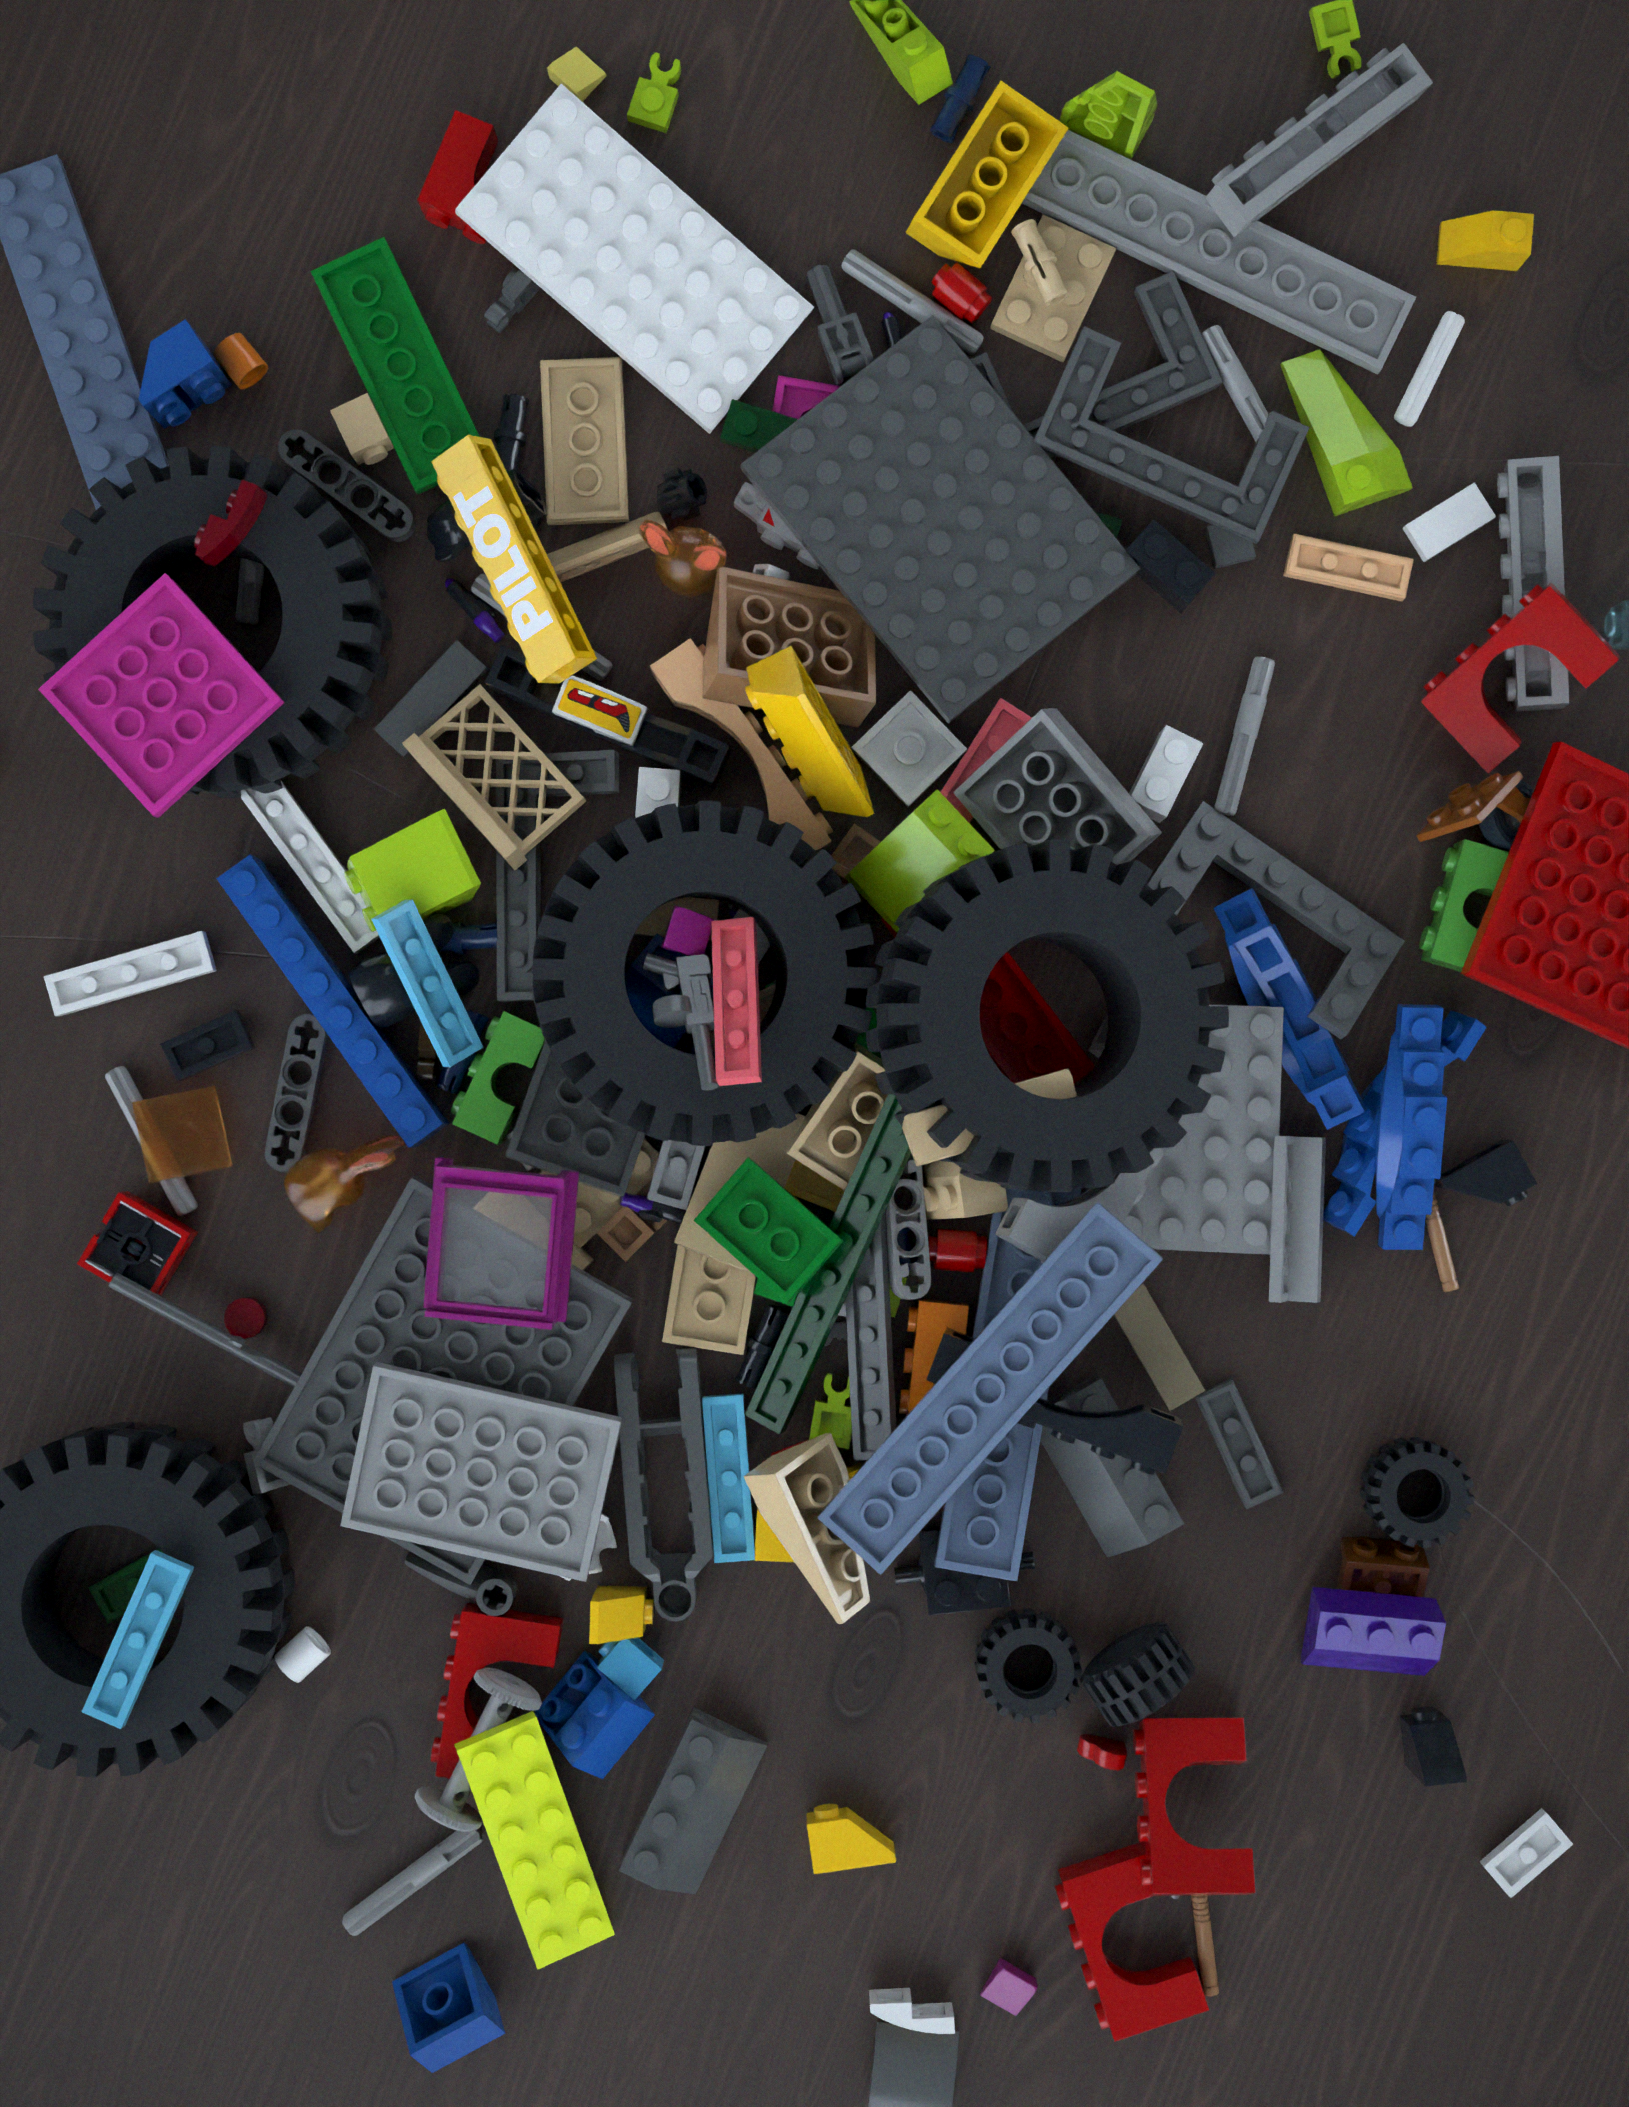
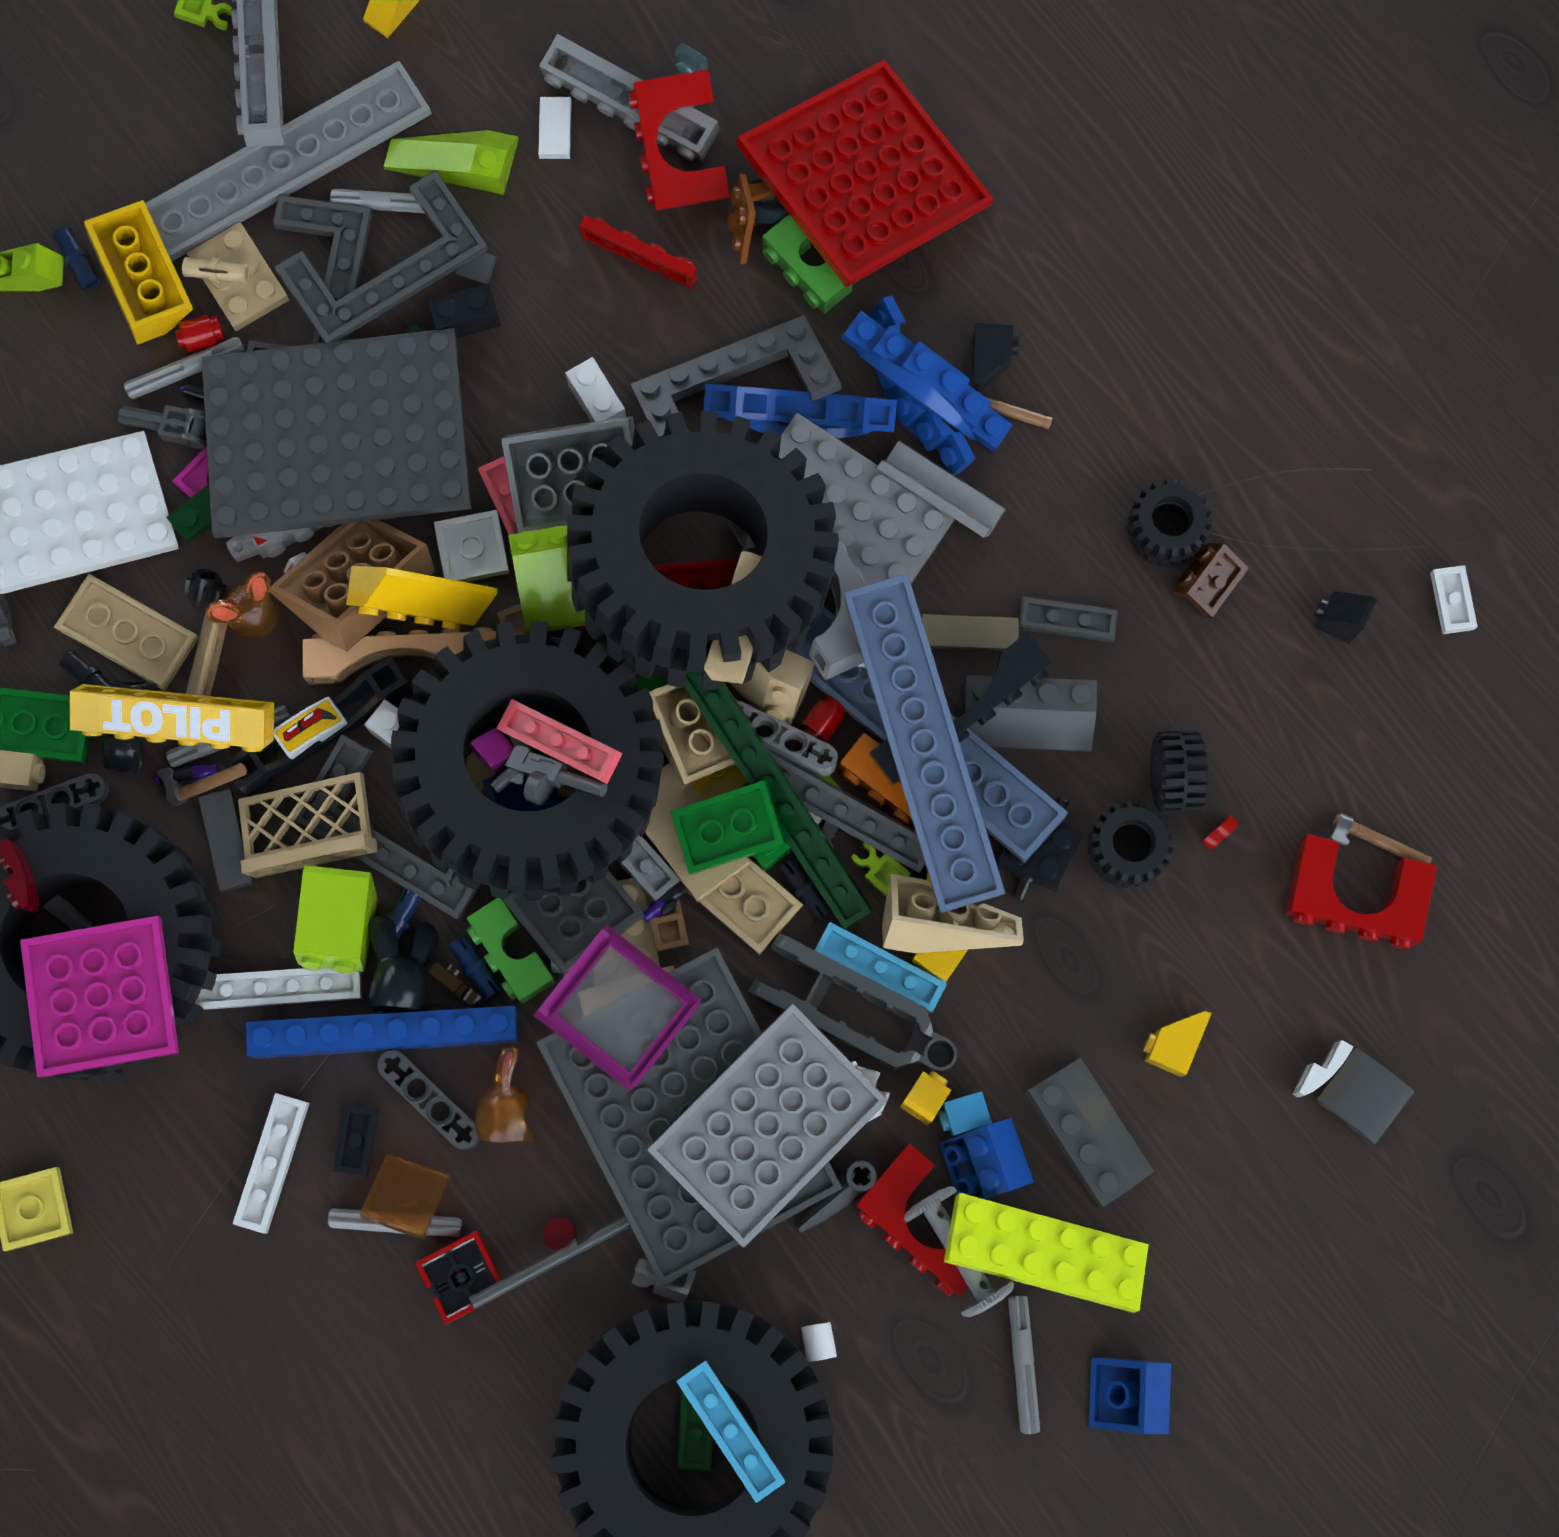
camera: 55 degrees left, 10 degrees down
(427, 982) = (413, 952): medium azure plate -> none
(446, 618) = (177, 794): none -> medium nougat piece
(1009, 1987) = (1346, 996): magenta slope -> none
(1112, 113) = (152, 165): lime wedge -> none
(1172, 1863) = (1318, 824): red arch -> none
(1244, 736) = (605, 332): light grey axle -> none
(1348, 567) = (541, 205): light nougat tile -> none
(1360, 695) = (631, 248): none -> red plate
(1373, 1631) = (1246, 607): dark purple slope -> none
(1429, 368) = (450, 81): white axle -> none

